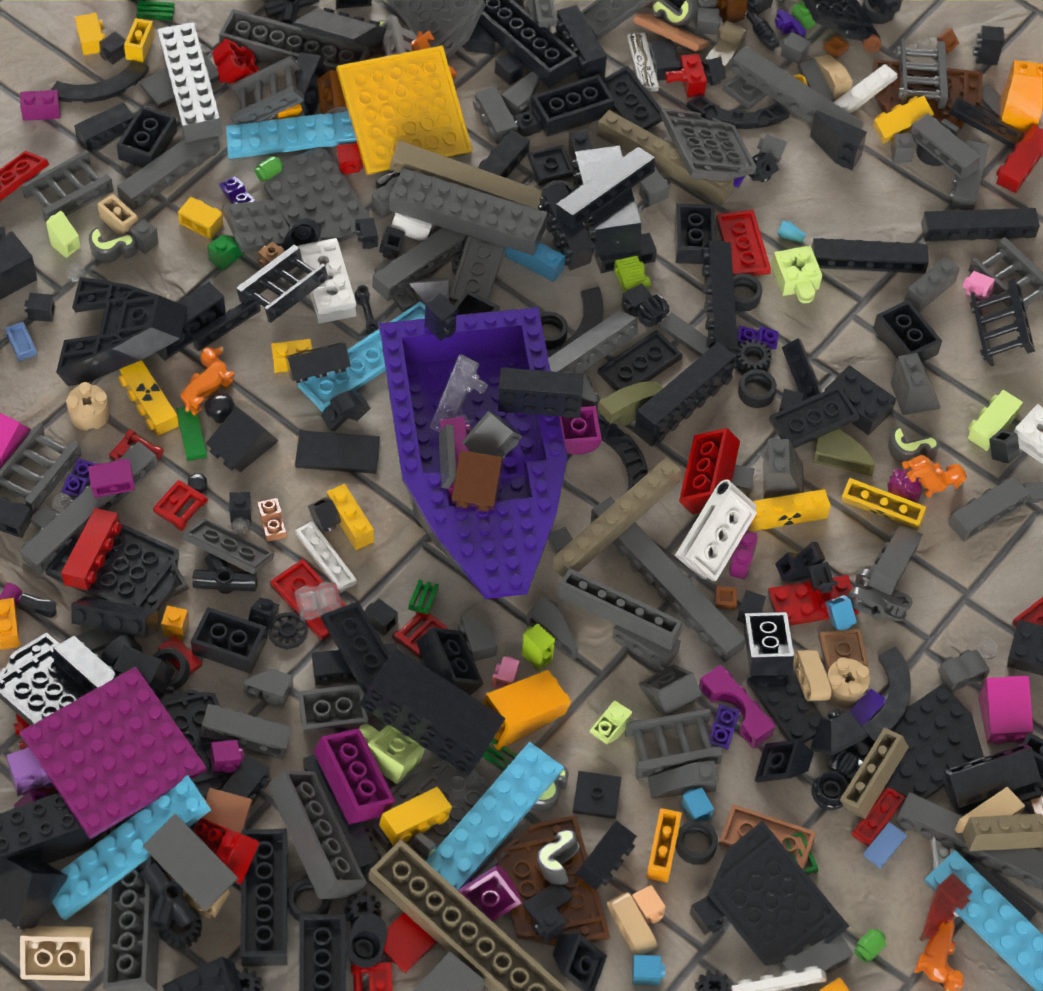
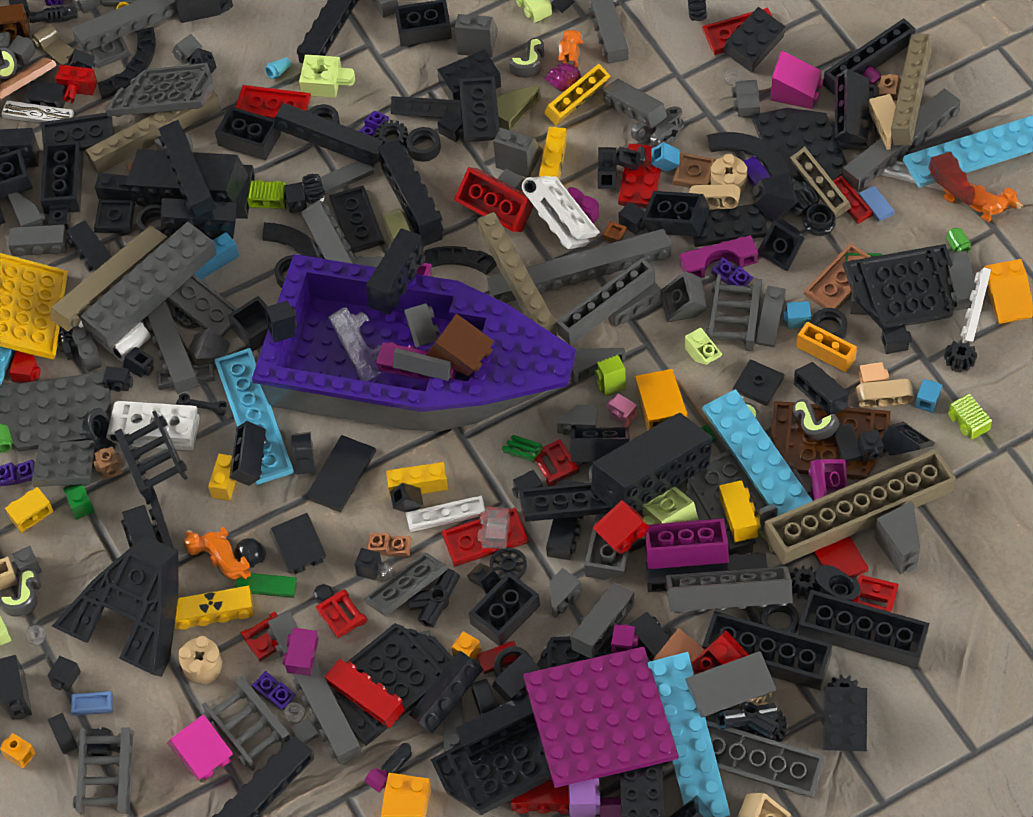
camera: 60 degrees left, 0 degrees up
(340, 704) = (621, 527): none -> red slope

